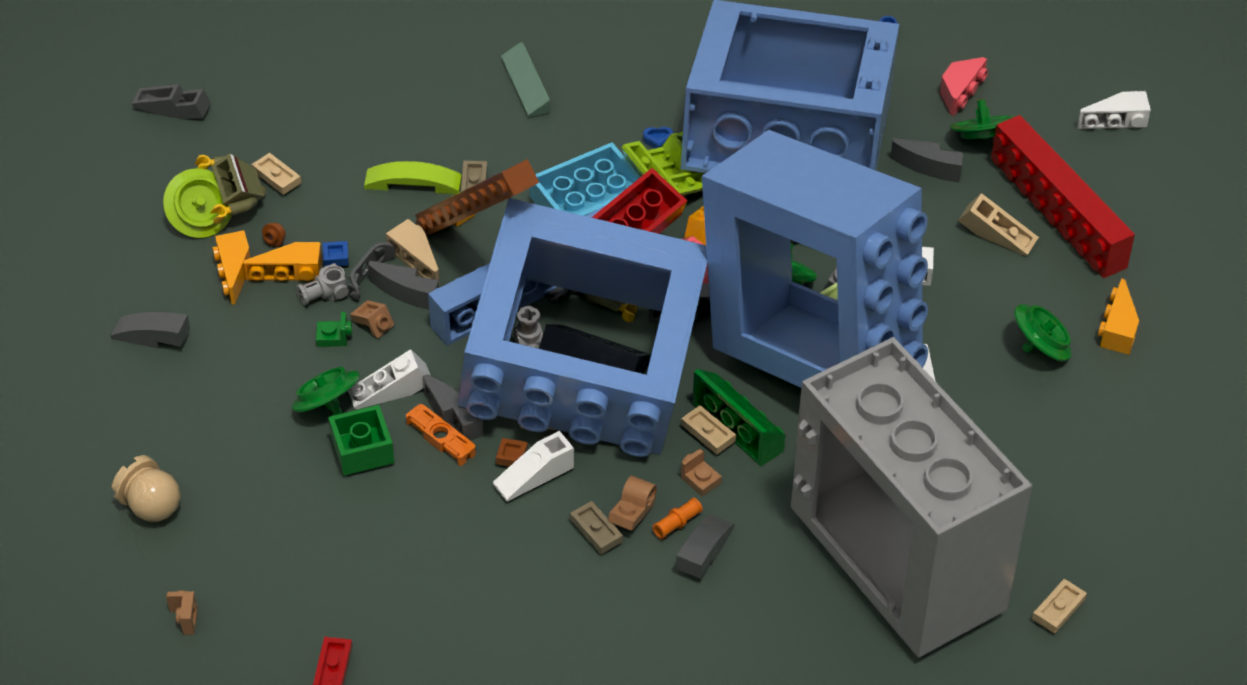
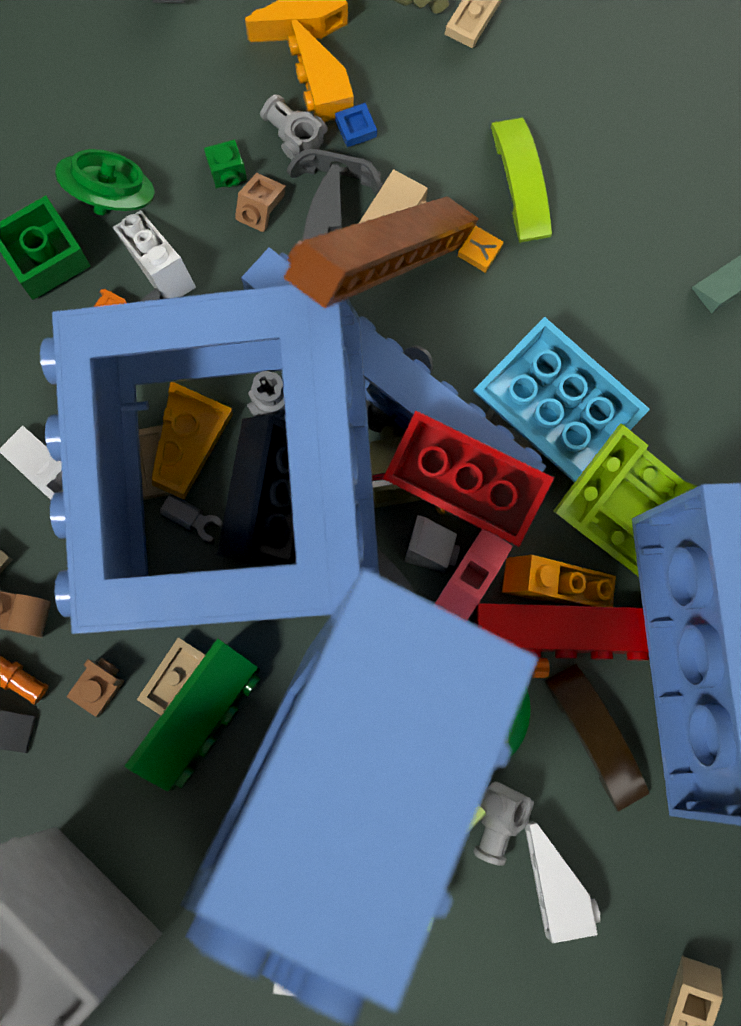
camera: 70 degrees right, 30 degrees up
(273, 234) = (366, 43): dark orange plate -> none
(473, 173) = (539, 252): dark tan plate -> none
(656, 137) = (710, 468): blue tile -> none

